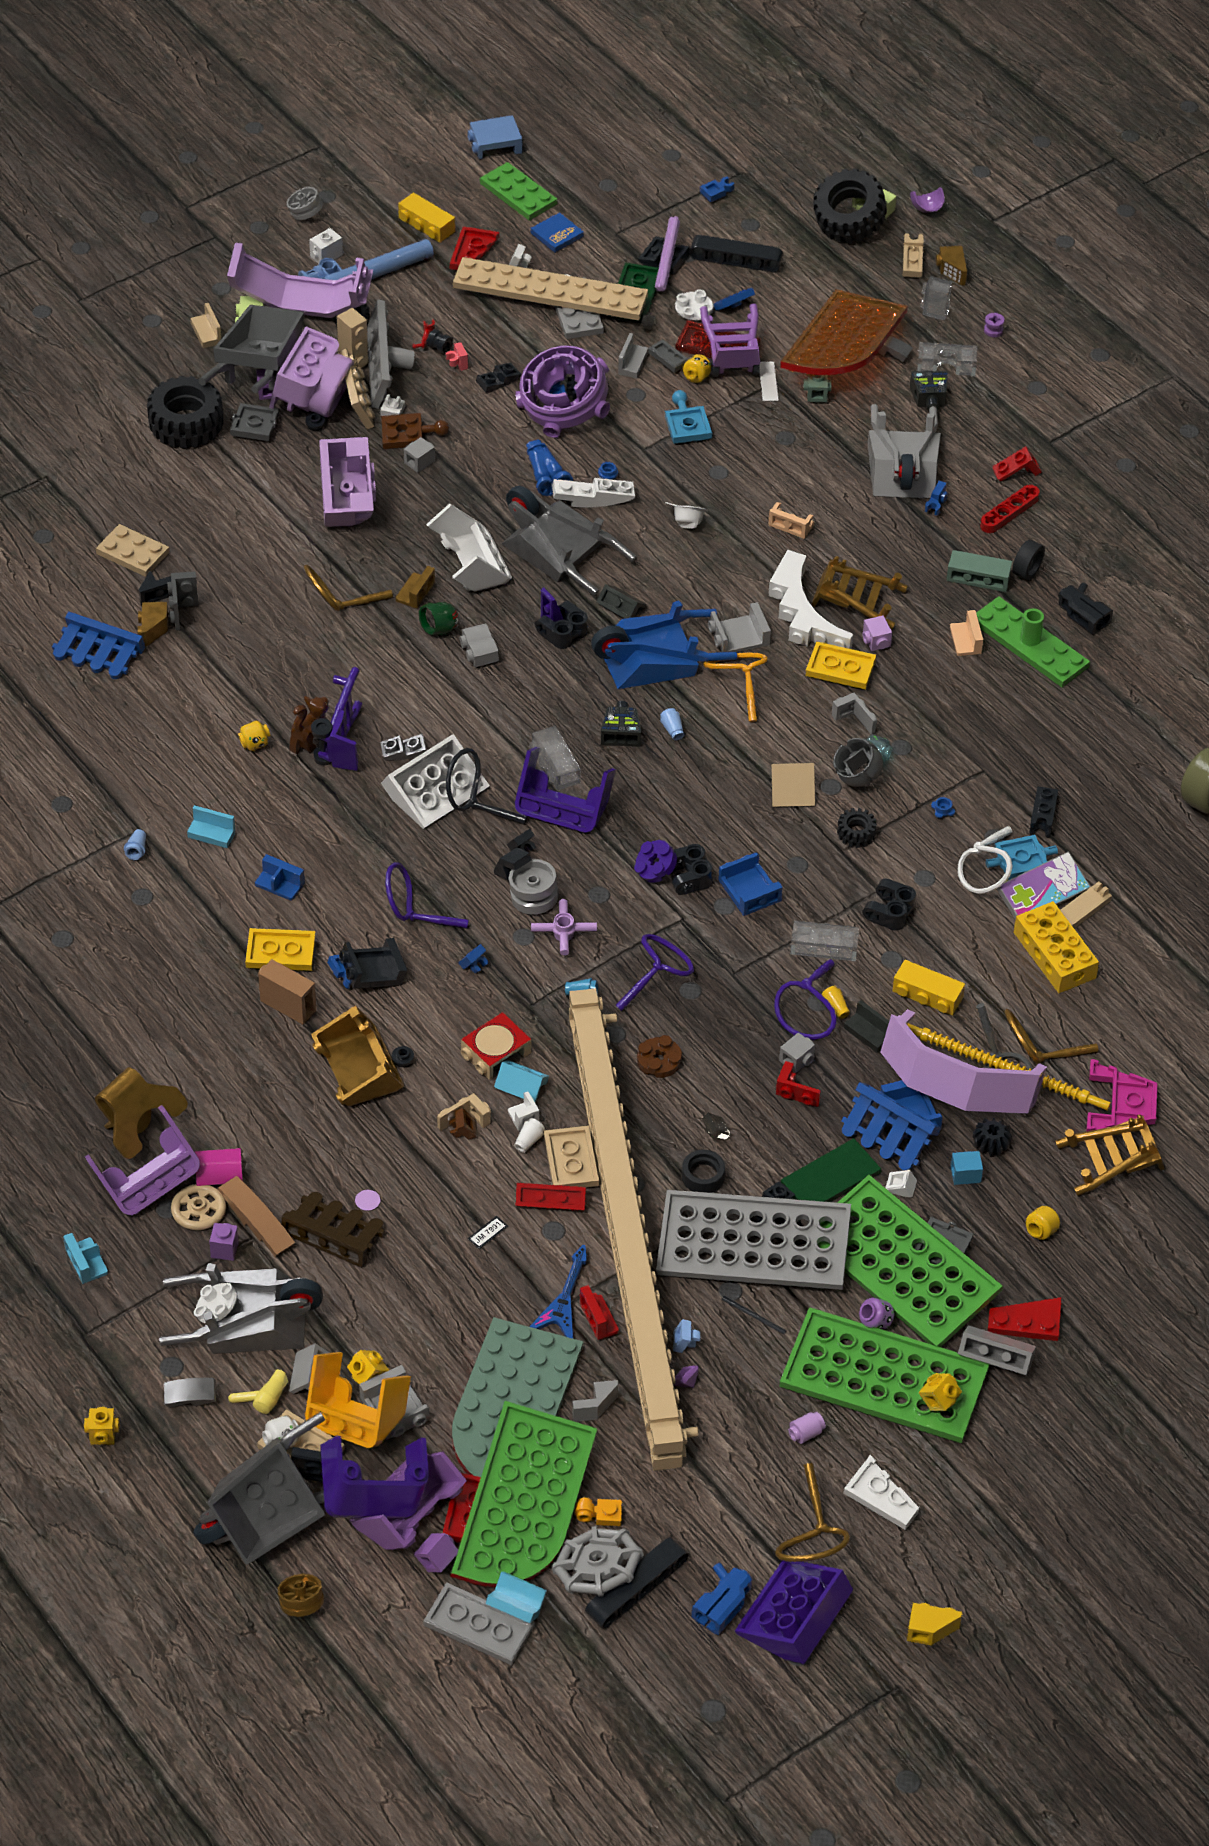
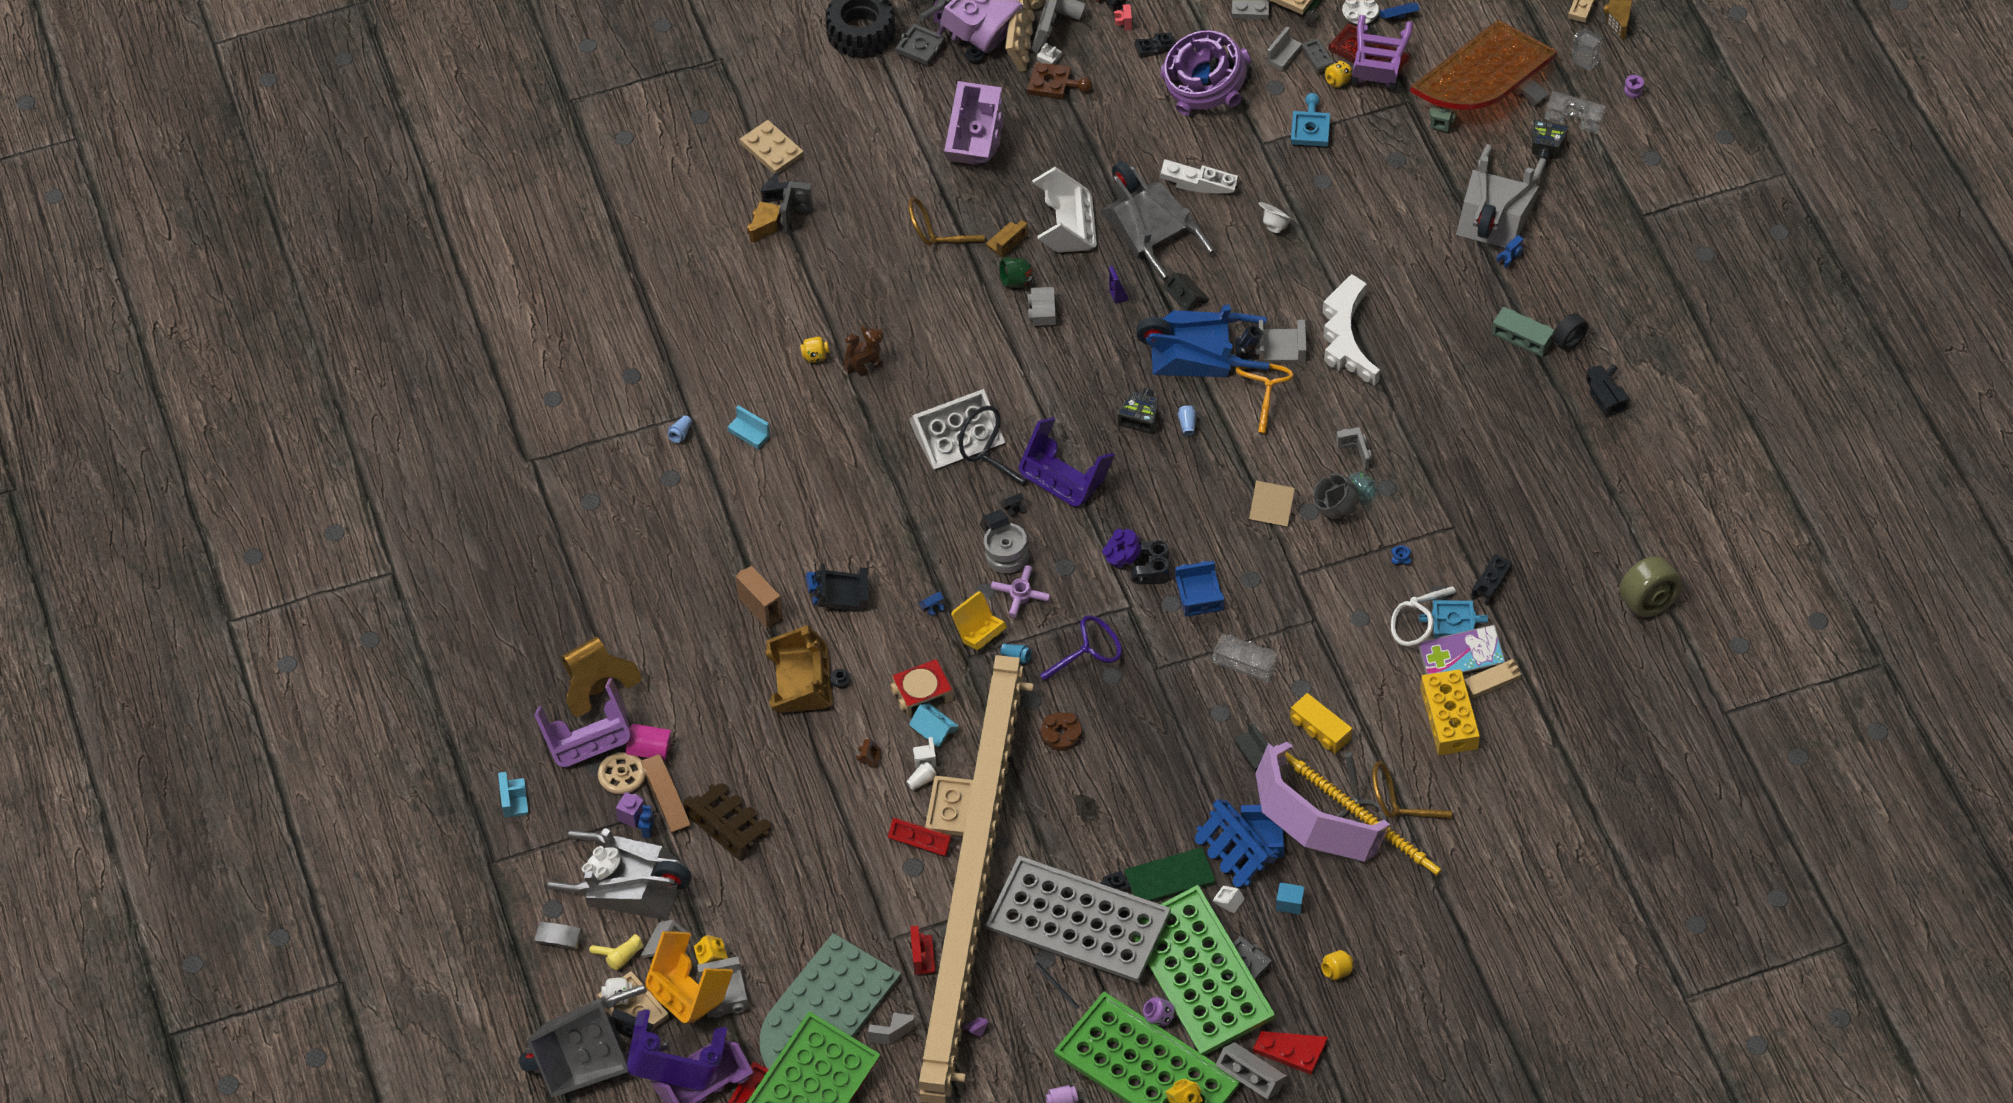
camera: 20 degrees right, 5 degrees up
(101, 634) = (710, 220): blue fence -> none
(101, 1426) = (475, 947): yellow brick -> none
(246, 1251) = (646, 822): none -> blue plate
(280, 878) = (792, 489): blue panel -> none
(287, 947) = (769, 555): yellow plate -> none
(331, 735) = (882, 379): dark purple hand -> none
(367, 1200) = (765, 801): lavender sticker -> none
(403, 749) = (940, 390): flat silver slope -> none
(419, 454) = (1055, 107): light grey brick -> none
(457, 922) = (893, 548): dark purple piece -> none
(473, 1105) = (879, 736): tan bracket -> none
(487, 1232) = (857, 855): sticker -> none
(529, 968) = (976, 622): none -> yellow bracket
(545, 467) = (1164, 144): blue piece -> none
(556, 758) = (1070, 430): clear brick -> none
(560, 1309) = (893, 939): blue piece -> none
(564, 631) = (1121, 309): black piece -> none
(608, 471) = (1220, 159): blue plate -> none
(684, 1336) = (988, 991): light blue tile -> none
(703, 1157) = (1059, 859): black tyre -> none
(708, 634) = (1247, 342): none -> black piece
(768, 381) = (1402, 99): white sticker -> none
(789, 522) = (1368, 245): light nougat hinge -> none
(789, 1089) = (1160, 787): red bracket -> none
(797, 1051) = (1181, 756): light grey brick -> none
(807, 985) = (1209, 695): dark purple piece -> none
(836, 592) = (1380, 329): pearl gold hand -> none
(836, 999) = (1233, 716): yellow cone -> none
(840, 665) = (1360, 396): yellow plate -> none
(858, 818) = (1318, 548): black tyre -> none
(877, 633) = (1404, 373): lavender brick -> none
(897, 910) = (1308, 645): black piece -> none
(967, 635) = (1487, 393): light nougat panel -> none
(992, 1136) = (1323, 875): black gear -> none
(993, 521) = (1578, 277): red beam -> none
(1016, 462) = (1599, 230): red bracket -> none
(1030, 641) = (1544, 411): bright green plate -> none
(1130, 1097) = (1461, 874): dark pink wing -> none
(1138, 1159) = (1443, 929): pearl gold hand -> none

